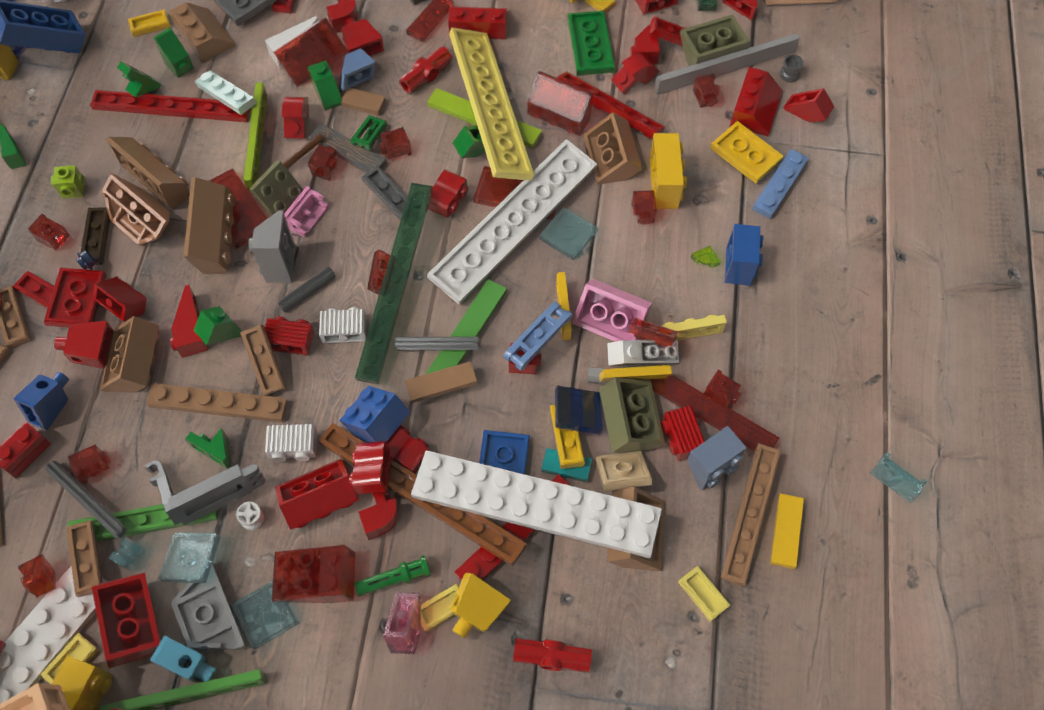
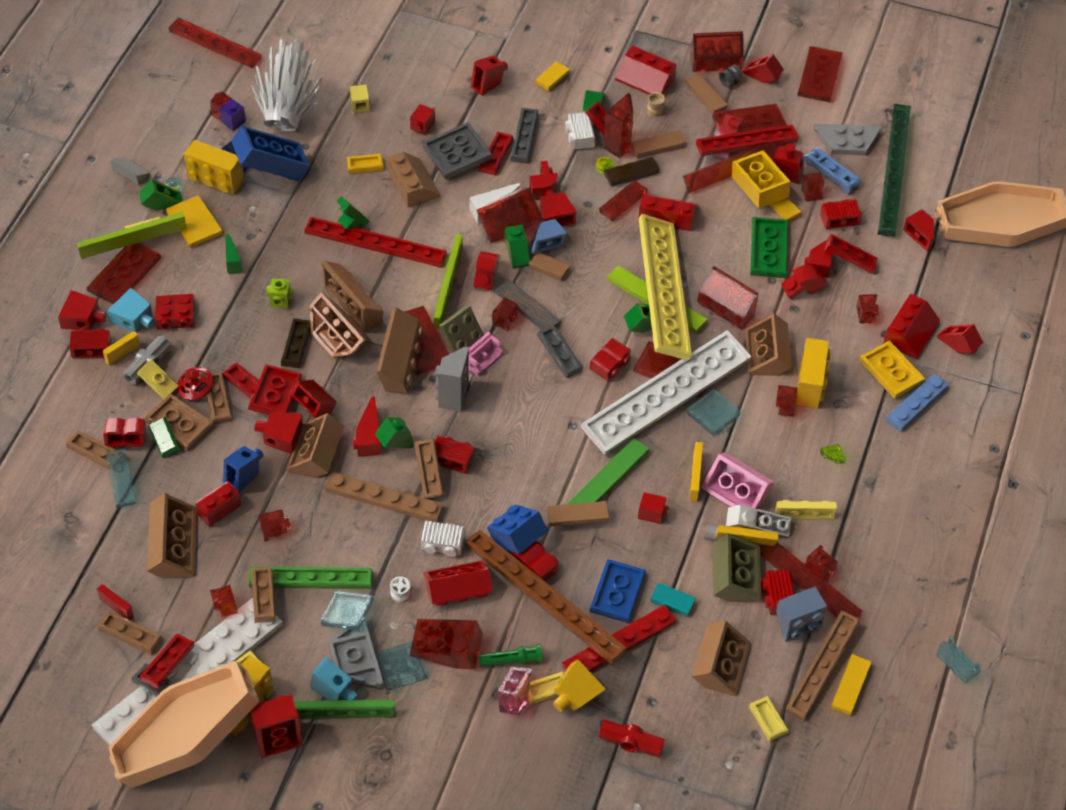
camera: 10 degrees right, 10 degrees down
(48, 232) = (258, 333): clear red brick -> none
(86, 260) = (288, 361): dark blue plate -> none
(89, 502) = (268, 551): dark grey axle -> none
(125, 620) = (292, 644): red brick -> none
(126, 554) = (296, 598): clear light blue wheel -> none
(173, 52) = (386, 196): green slope -> none
(206, 495) = (368, 564): dark grey hinge -> none
(215, 449) = (376, 533): green slope -> none
(225, 92) = (427, 238): light aqua plate -> none
(303, 150) = (491, 299): reddish brown bar -> none
(306, 289) = (473, 419): dark grey axle -> none
(343, 325) = (501, 454): white brick -> none
(370, 467) = (508, 566): red brick -> none
(374, 136) = (558, 292): green tile -> none
(378, 270) = (541, 417): clear red plate -> none
(381, 517) = (508, 609): red brick -> none
(394, 284) = (551, 425): clear green plate -> none
(395, 143) = (572, 308): clear red brick -> none
(425, 69) = (611, 247): red piece -> none
(437, 343) = (580, 482): dark grey axle -> none
(537, 335) = (668, 489): medium blue plate -> none
(537, 503) = (641, 618): white plate -> none
(567, 445) = (677, 575): yellow tile -> none
(578, 410) = (691, 556): tile -> none
(611, 105) = (774, 306): red plate -> none
(623, 470) = (720, 610): tan tile -> none
(646, 330) = (762, 501): clear red plate -> none
(713, 40) = (883, 267): olive slope -> none
(727, 63) = (893, 287): light grey tile -> none
(743, 254) = (865, 455): blue brick -> none
(791, 68) = (952, 301): dark grey wheel -> none

